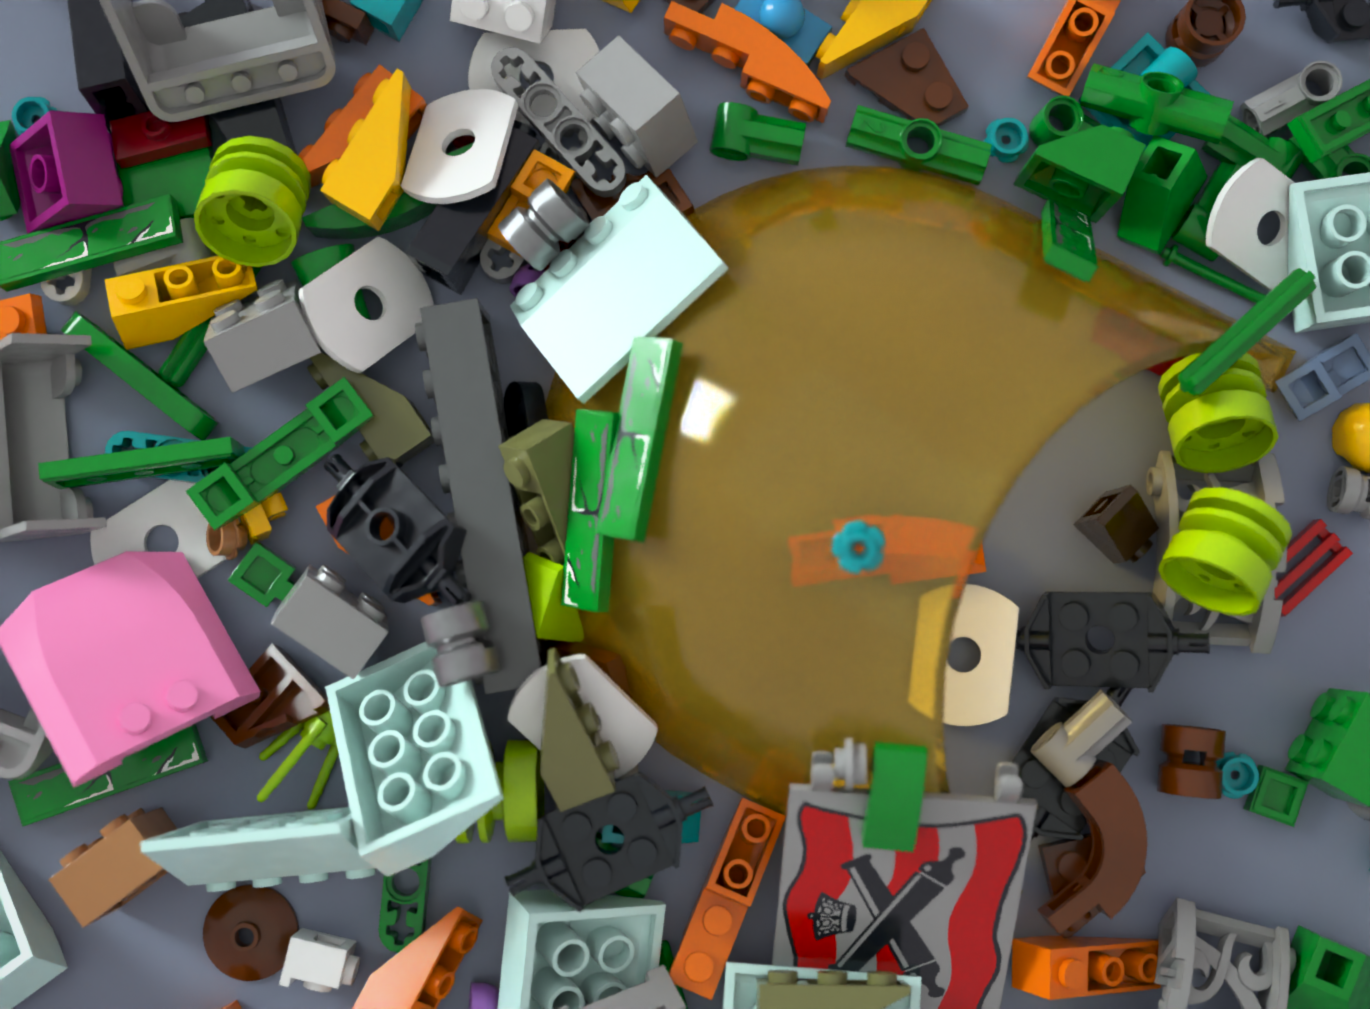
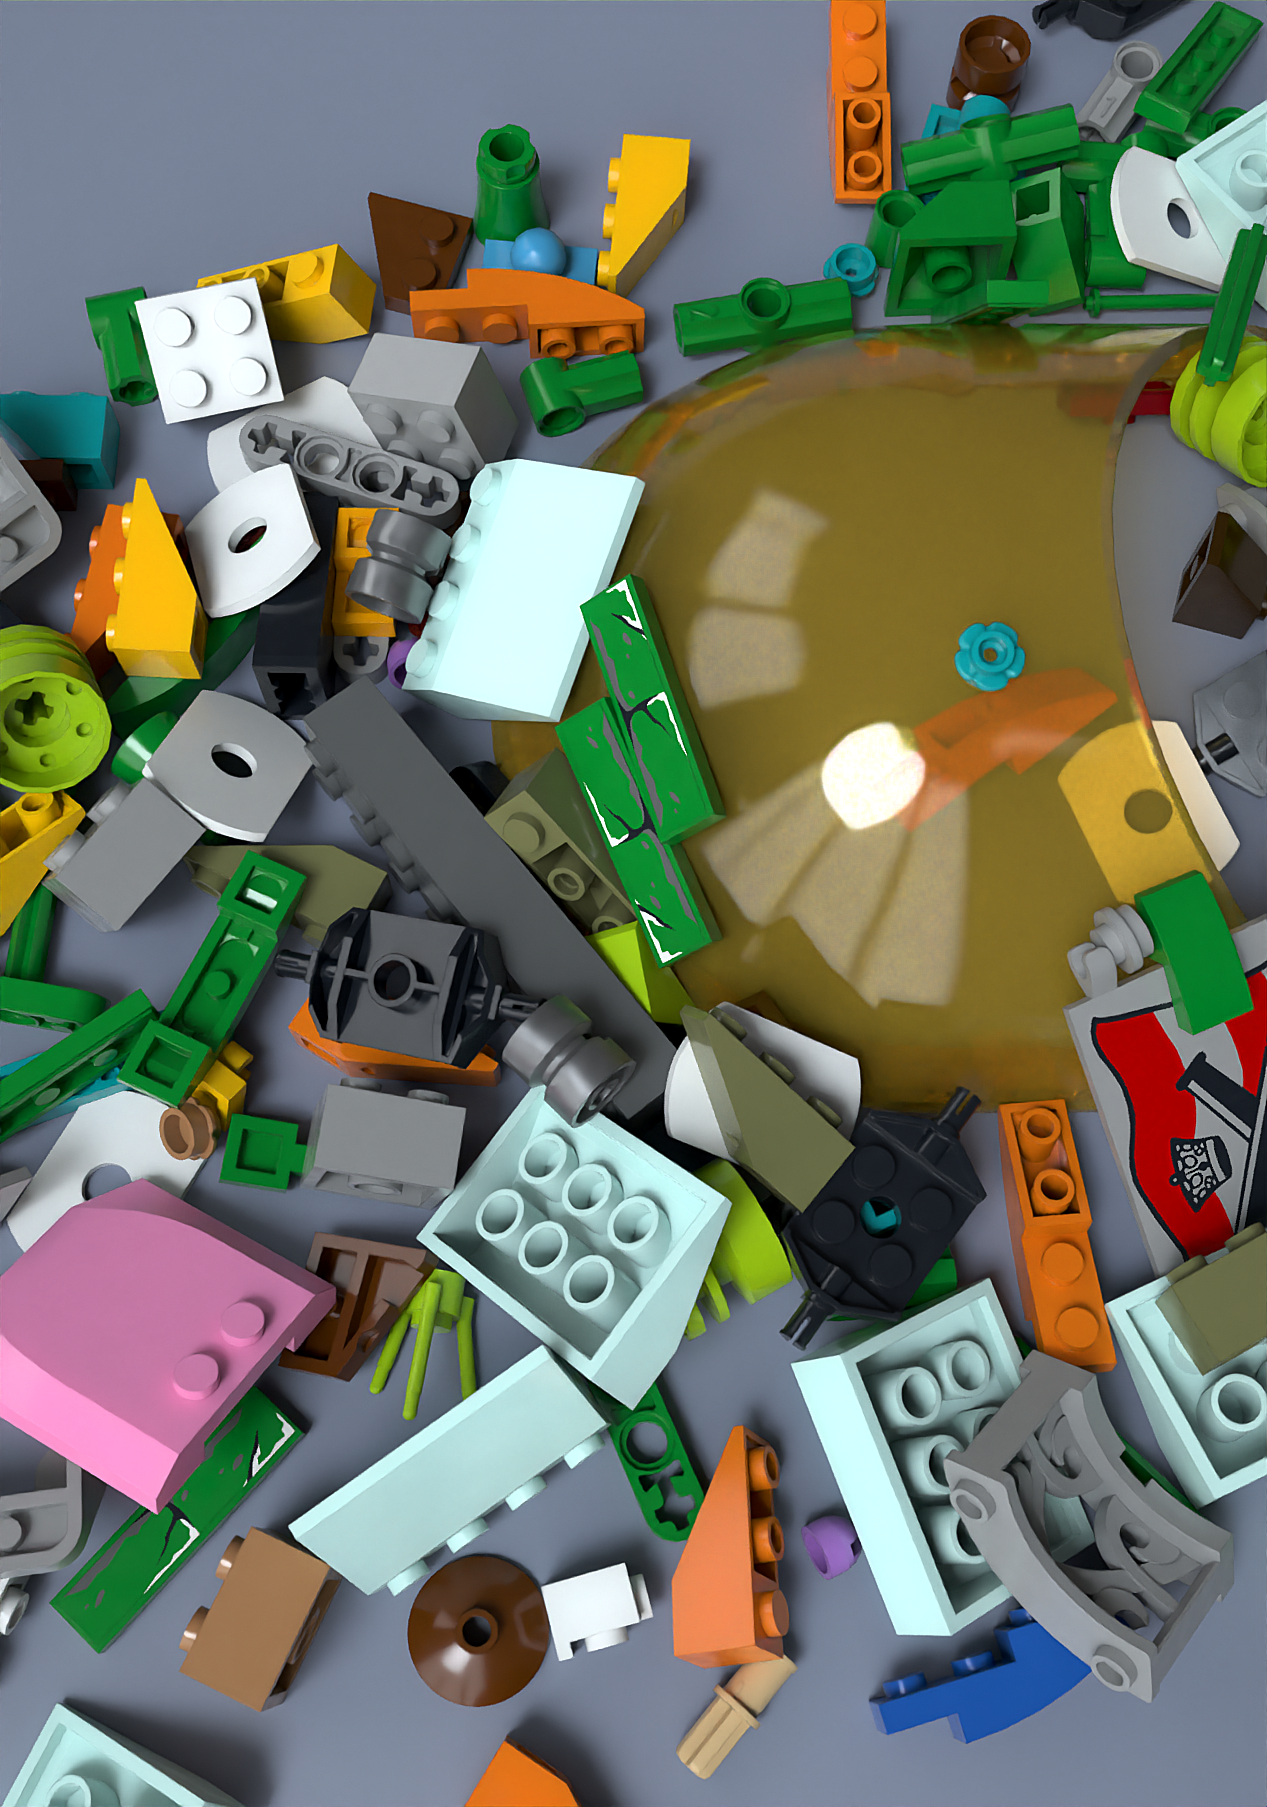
camera: 30 degrees left, 15 degrees down
(911, 80) = (711, 261): reddish brown wing -> none

